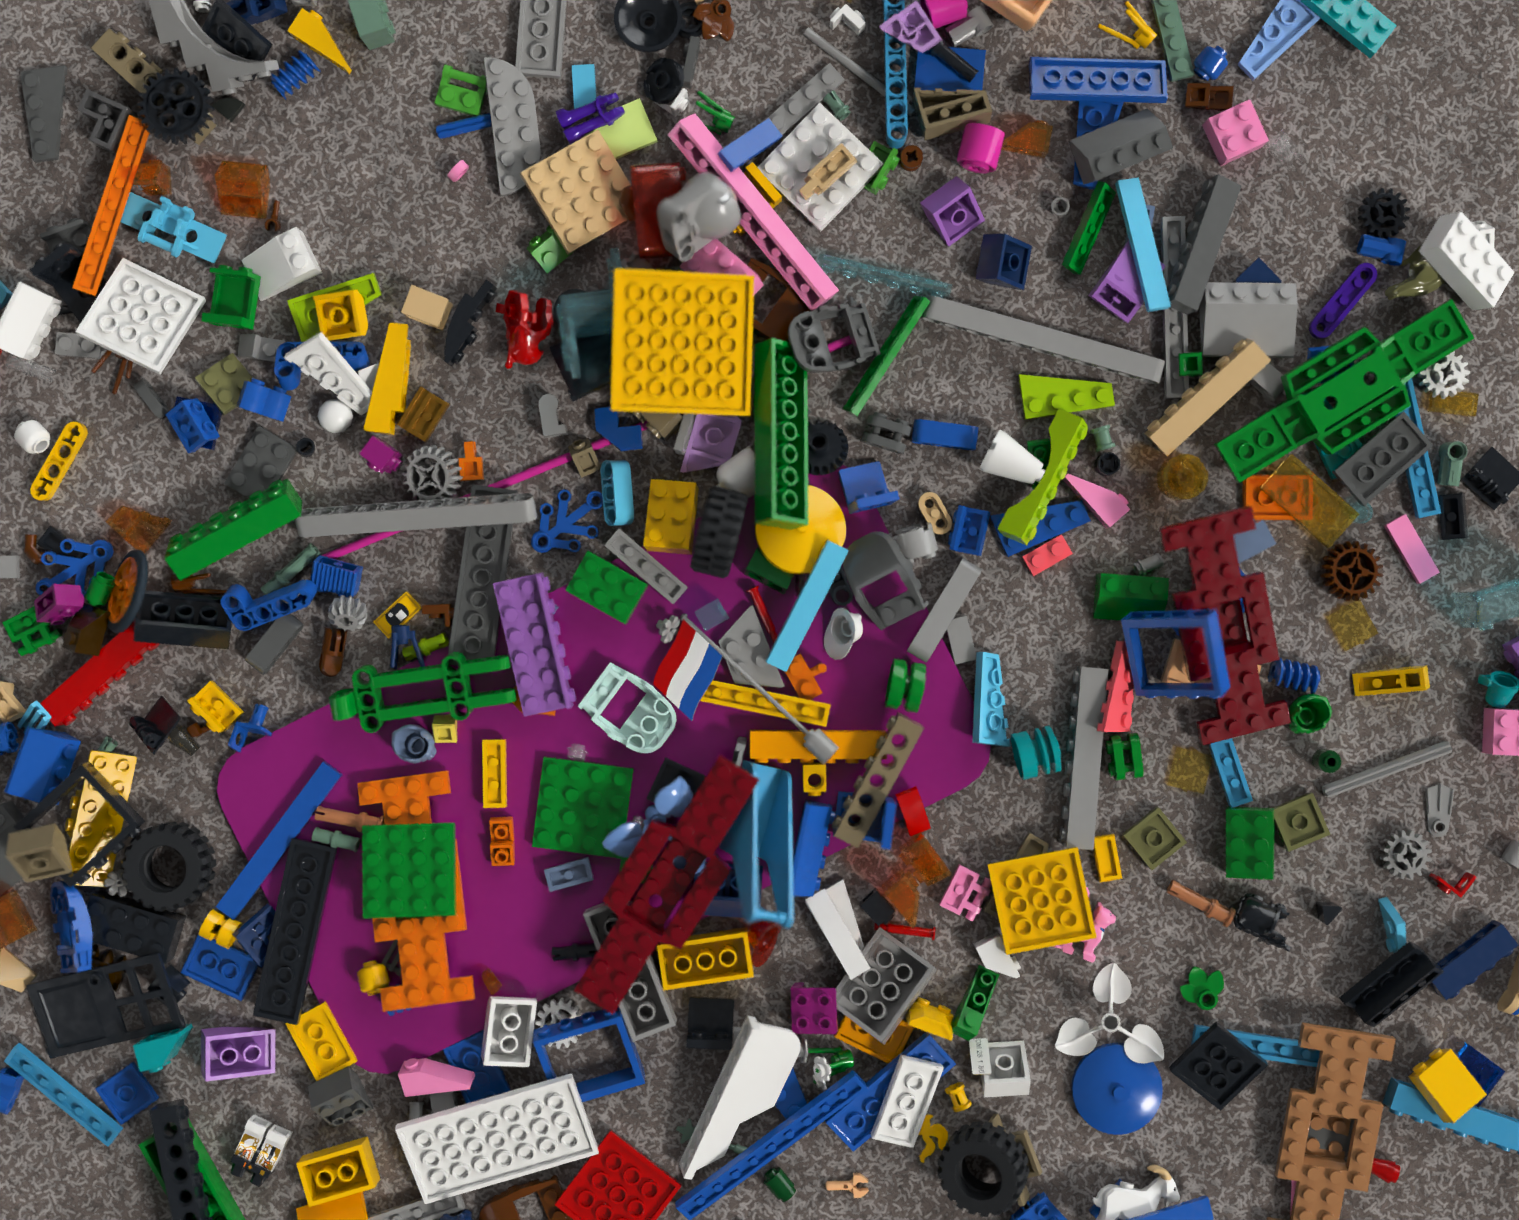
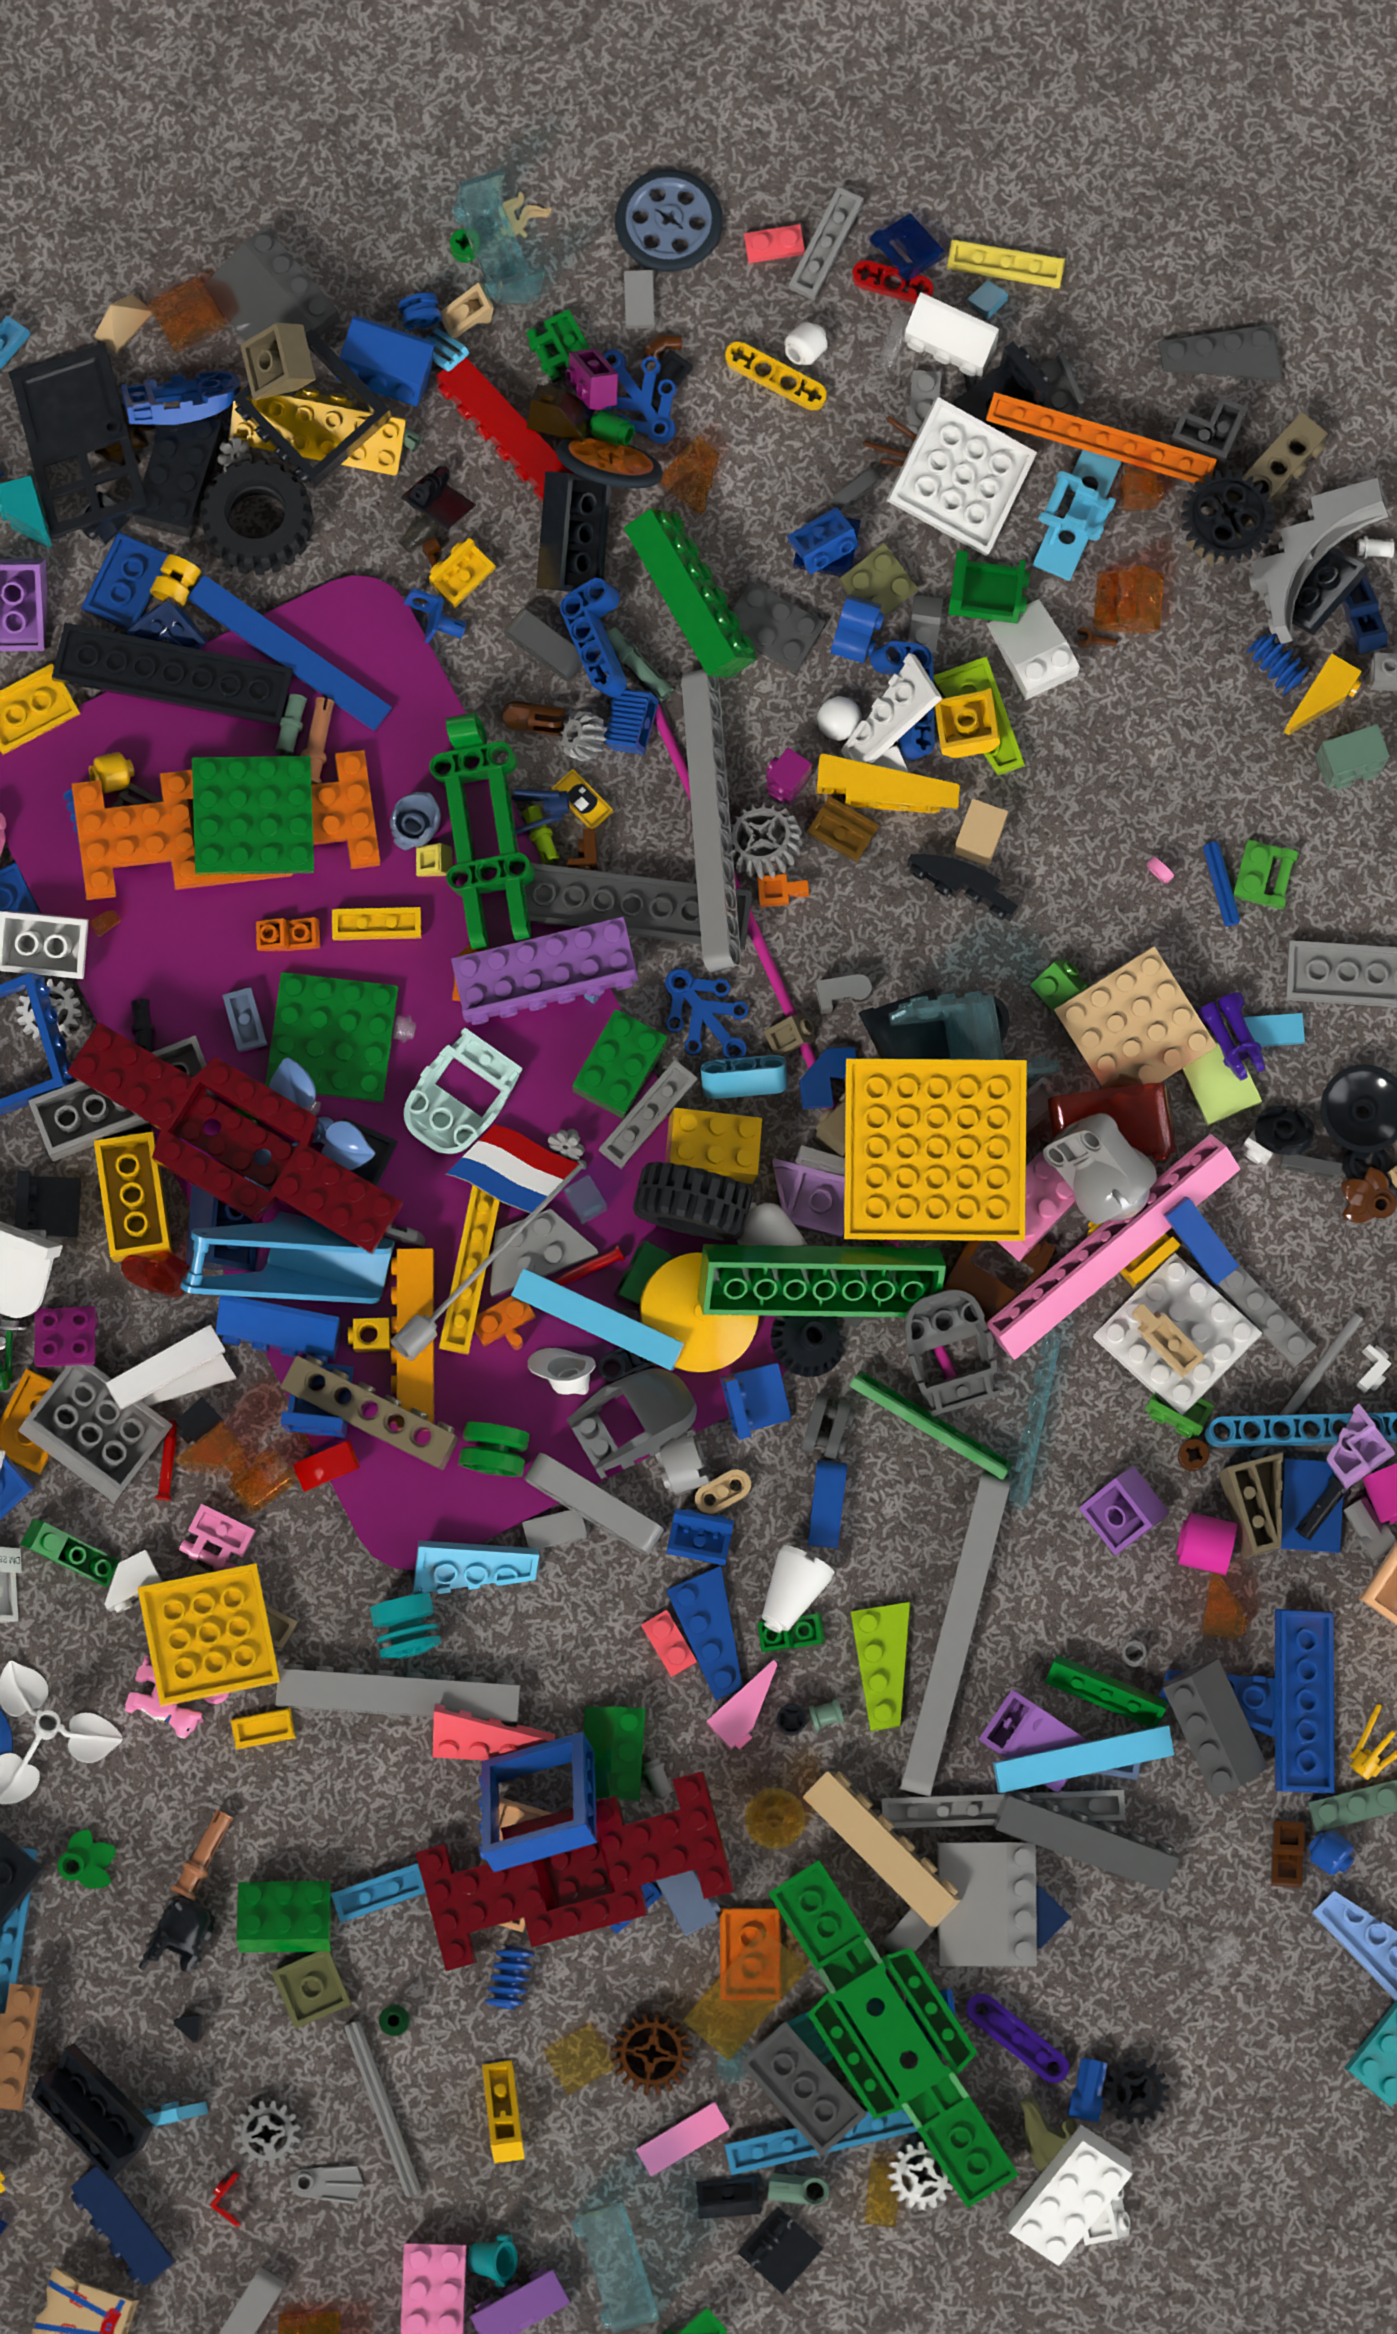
camera: 90 degrees right, 10 degrees down
(186, 585) = (619, 535): reddish brown plant -> none
(229, 107) = (1234, 581): pearl dark grey tile -> none
(302, 444) = (801, 678): black hinge -> none
(512, 123) = (1222, 938): light grey plate -> none
(523, 336) = (953, 955): red helmet -> none
(722, 119) = (1236, 1207): green plant -> none
(837, 106) = (1258, 1358): sand green pin -> none
(931, 1018) = (51, 1492): yellow slope -> none
(1003, 261) = (1058, 1579): dark blue slope -> none
(1022, 519) = (718, 1605): lime arch -> none
(1115, 749) = (412, 1736): green brick -> none
(1154, 838) = (289, 1791): olive plate -> none
(1190, 364) = (926, 1828): green slope -> none
(1190, 770) = (380, 1840): clear yellow piece -> none
(1235, 132) = (1238, 1886): bright pink brick -> none
(1309, 713) = (457, 1996): green hair -> none

